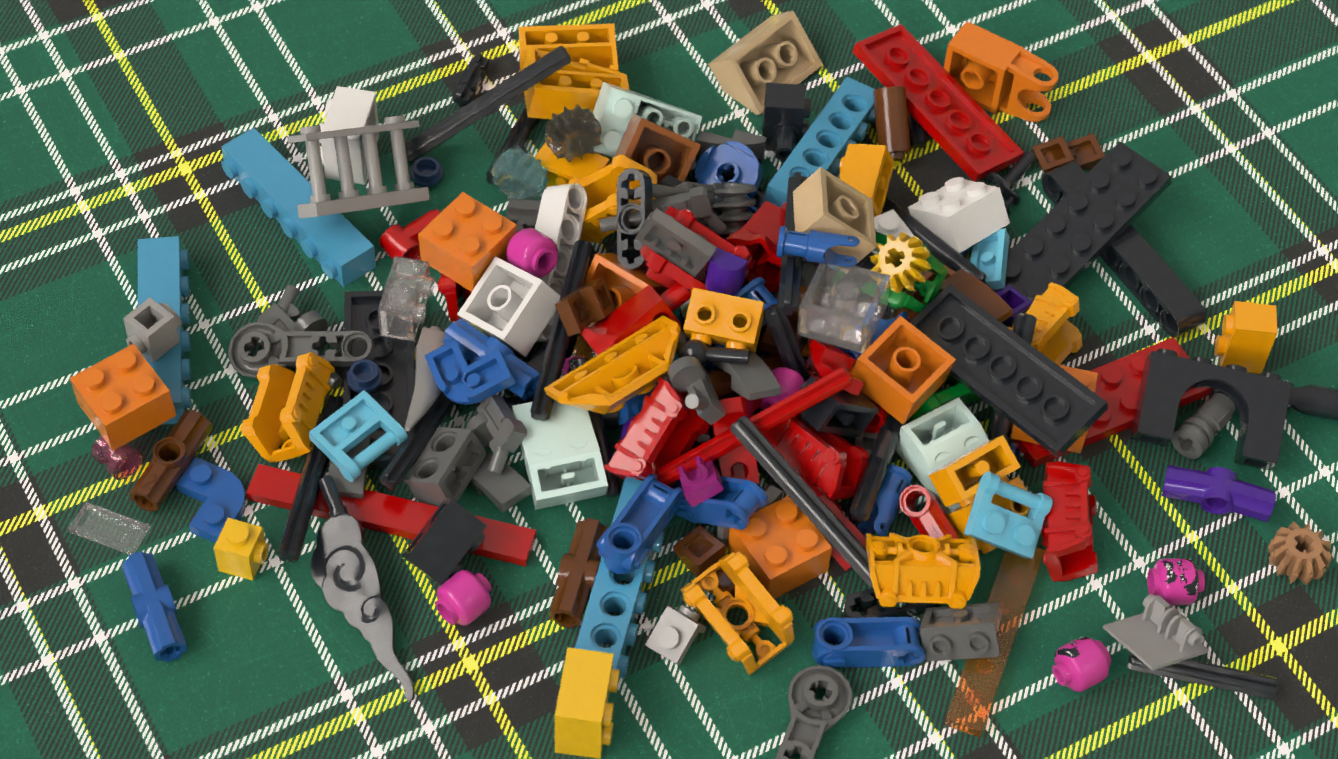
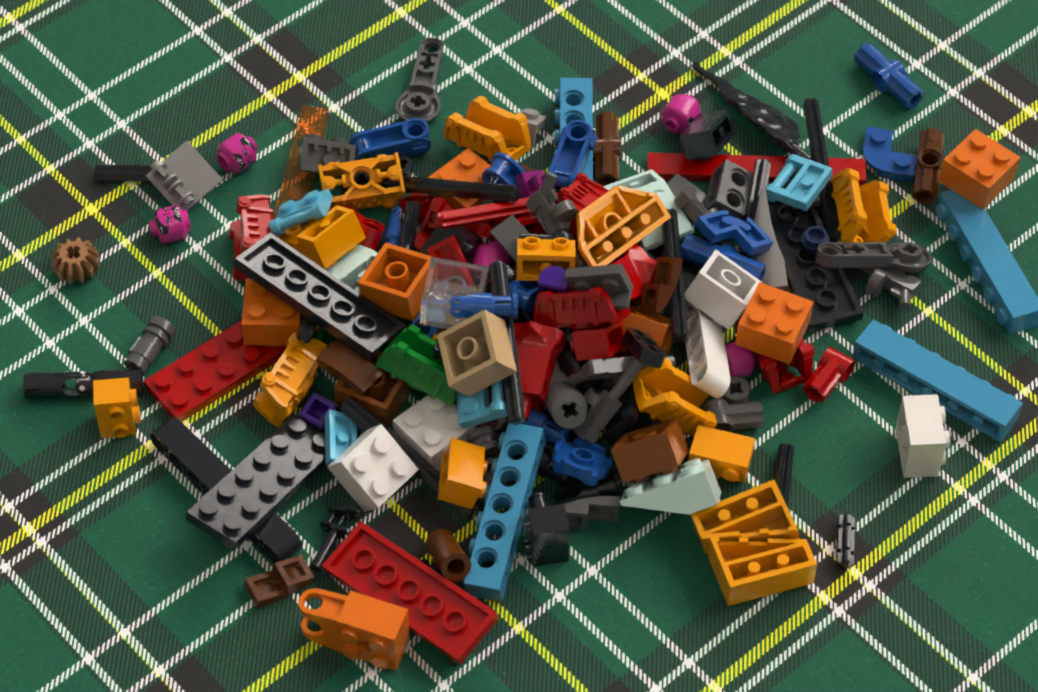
camera: 170 degrees right, 0 degrees up
(109, 528) = (948, 121): clear tile -> none
(152, 328) = (984, 214): light grey brick -> none
(241, 549) = (847, 116): yellow brick -> none
(349, 198) = (891, 374): light grey fence -> none
(405, 298) = (810, 283): clear brick -> none
(426, 172) = (845, 440): dark blue plate -> none
(487, 103) = (812, 472): black axle -> none
(519, 174) = (766, 429): clear light blue gear -> none
(532, 252) = (718, 318): dark pink head -> none
(573, 133) = (724, 439): clear smoke gear -> none
(582, 706) = (574, 48): yellow brick -> none
(769, 53) = (581, 612): tan slope -> none
(911, 255) = (414, 328): yellow gear -> none
(1219, 492) = (137, 293): dark purple piece -> none
(1258, 398) = (180, 346): black arch -> none

